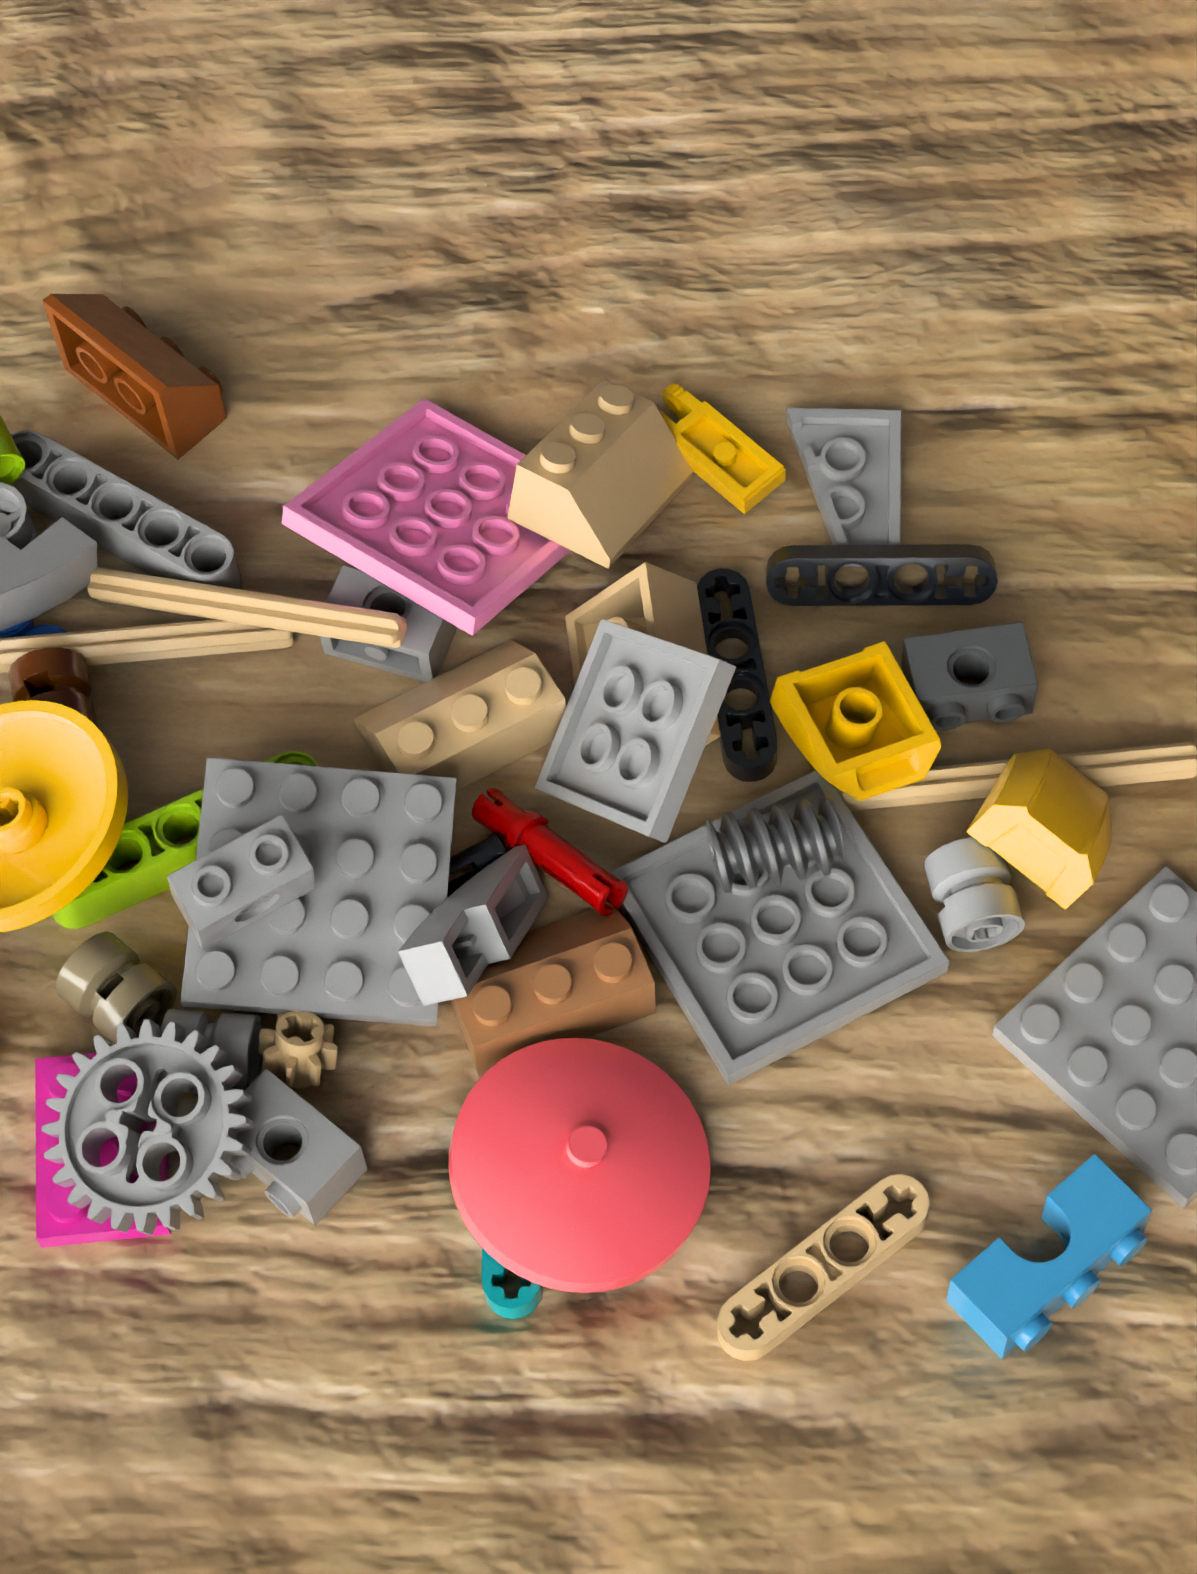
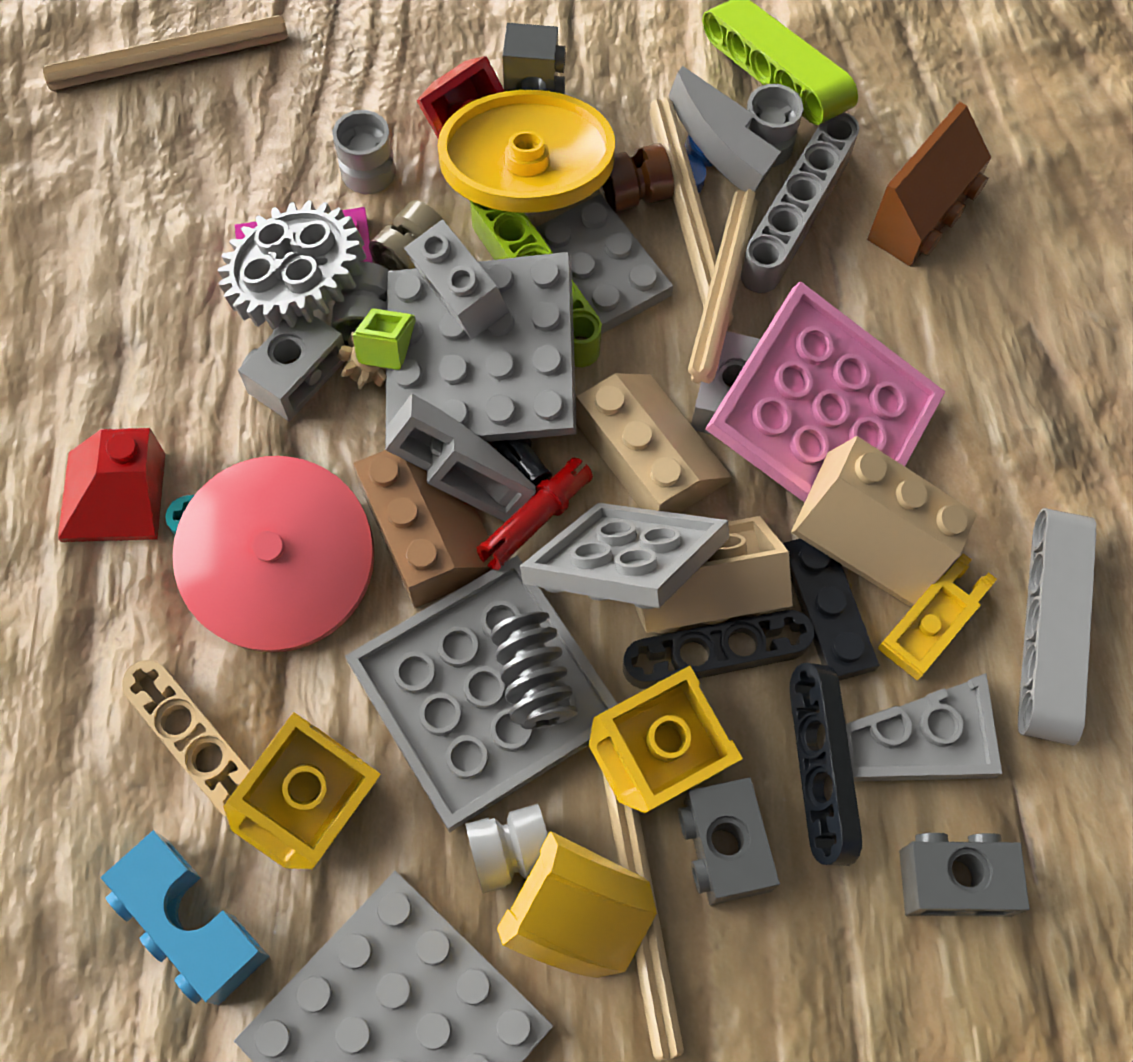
camera: 80 degrees right, 5 degrees up
(170, 747) = (606, 261): none -> light grey plate
(293, 999) = (383, 338): none -> lime slope
(457, 1390) = (113, 487): none -> red slope
(694, 550) = (830, 606): none -> black plate
(730, 335) = (1057, 628): none -> light grey beam
(906, 1115) = (298, 795): none -> yellow slope
(1013, 434) = (995, 868): none -> dark grey brick

